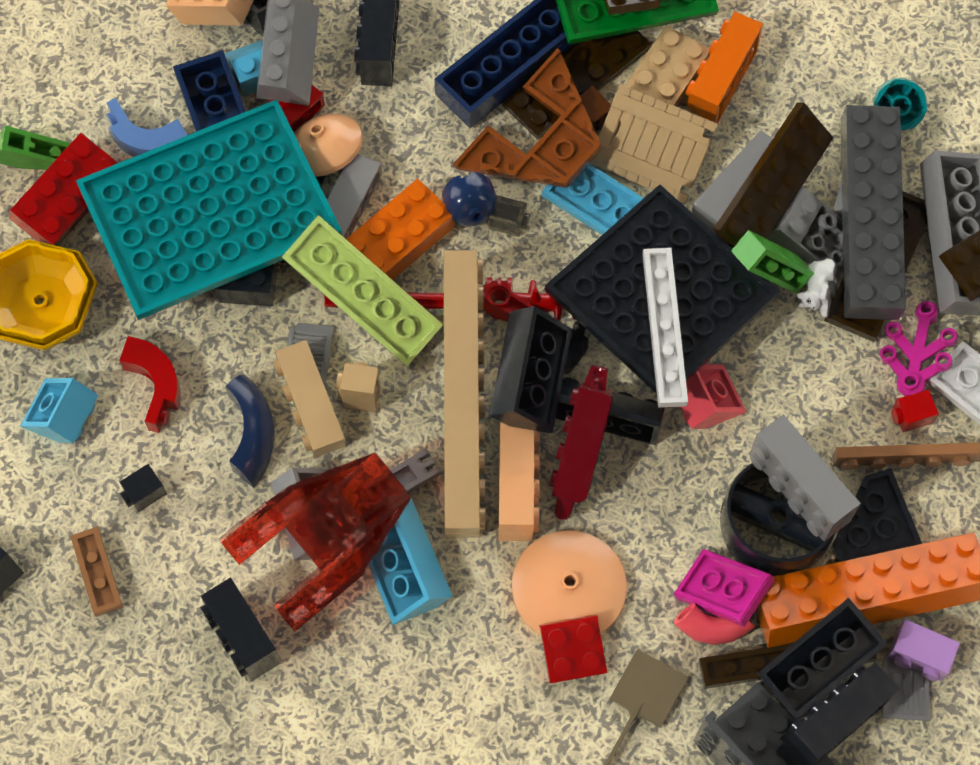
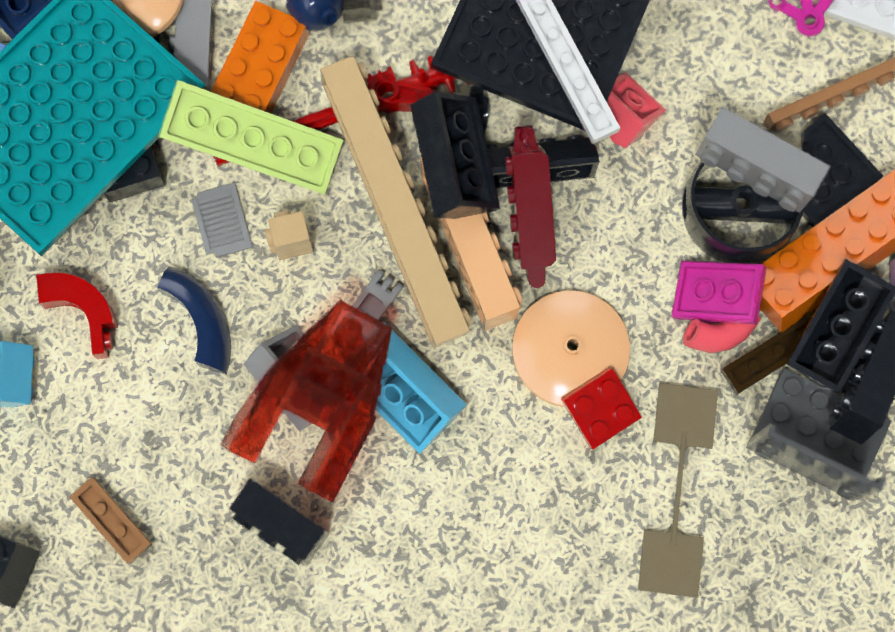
camera: 25 degrees left, 10 degrees up
(142, 488) = (118, 421): black brick -> none
(309, 398) = (244, 265): tan brick -> none
(914, 411) = (824, 47): red brick -> none

